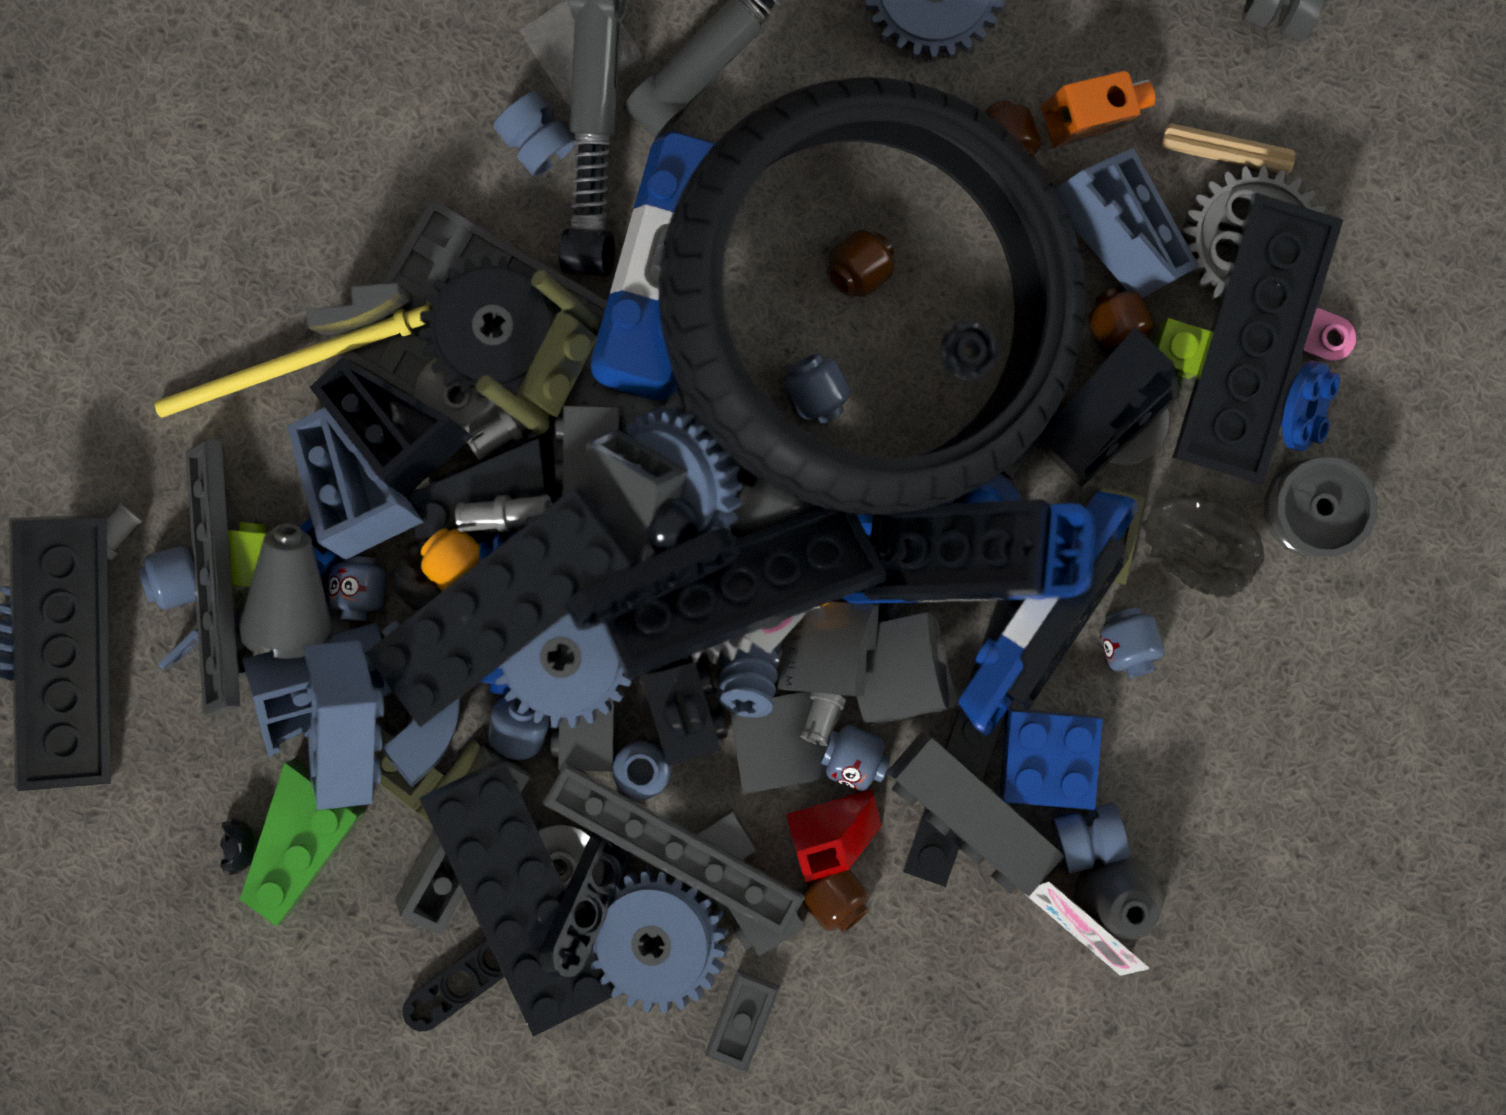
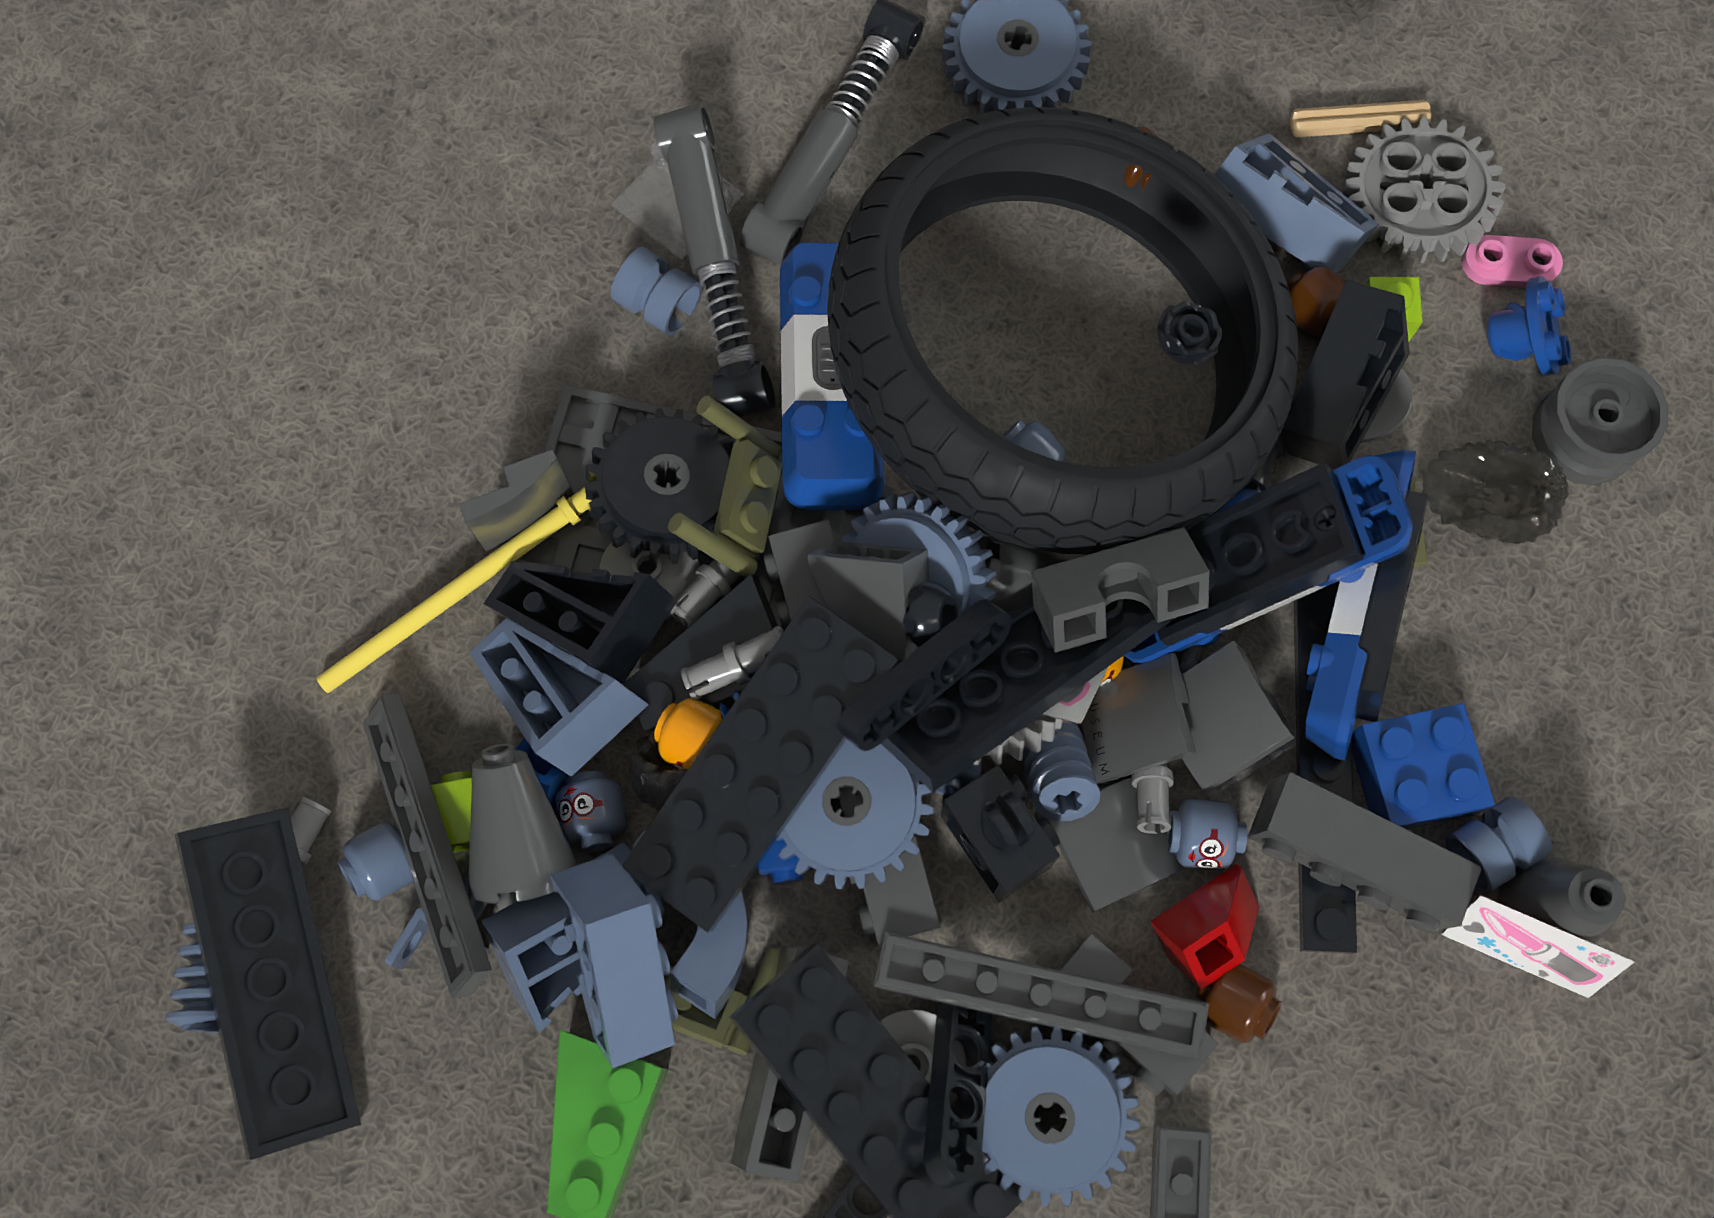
camera: 15 degrees left, 15 degrees down
(236, 846) = (527, 1154): black plate -> none
(514, 733) = (817, 912): sand blue head -> none
(641, 769) = (972, 917): sand blue head -> none
(861, 263) = (1032, 323): reddish brown head -> none
(875, 542) = (1157, 571): none -> dark grey arch
(1095, 107) = (1224, 98): orange torso -> none
(1132, 642) = (1458, 620): sand blue head -> none
(1257, 338) = (1470, 271): black plate -> none

